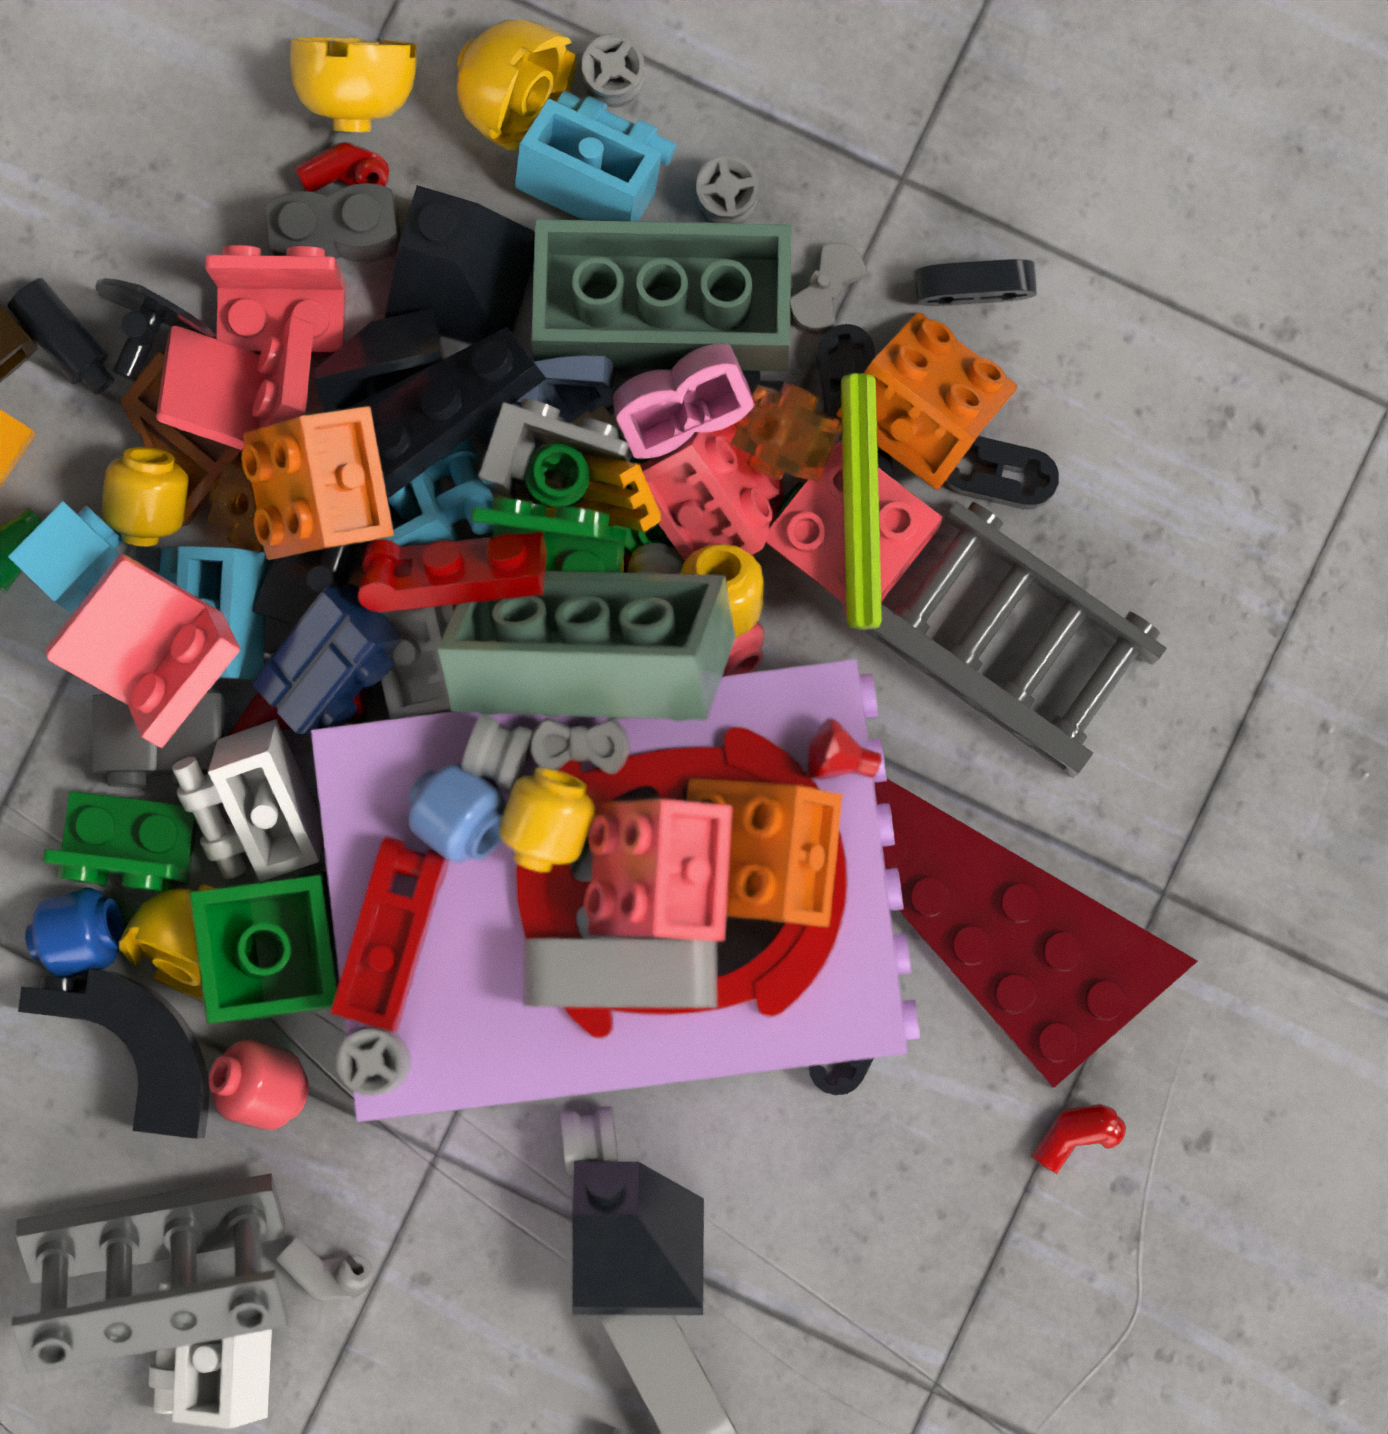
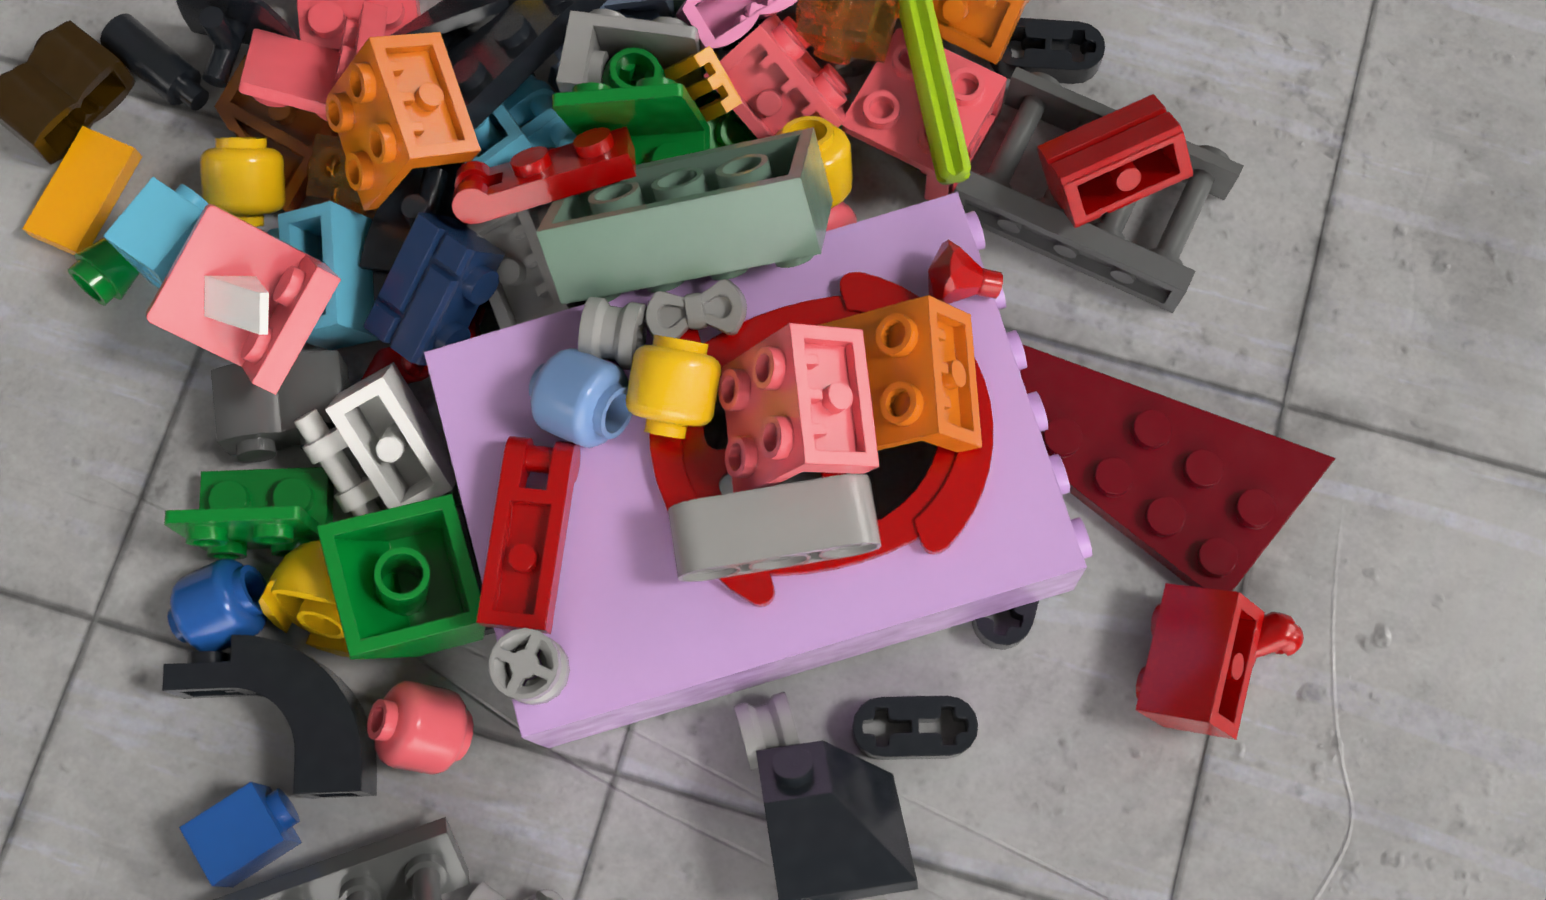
camera: 10 degrees left, 10 degrees down
(78, 1156) = (242, 833): none -> blue brick
(139, 655) = (237, 302): none -> white piece
(729, 1174) = (914, 711): none -> black beam
(1015, 1142) = (1199, 660): none -> red brick
(1029, 631) = (1115, 160): none -> red brick

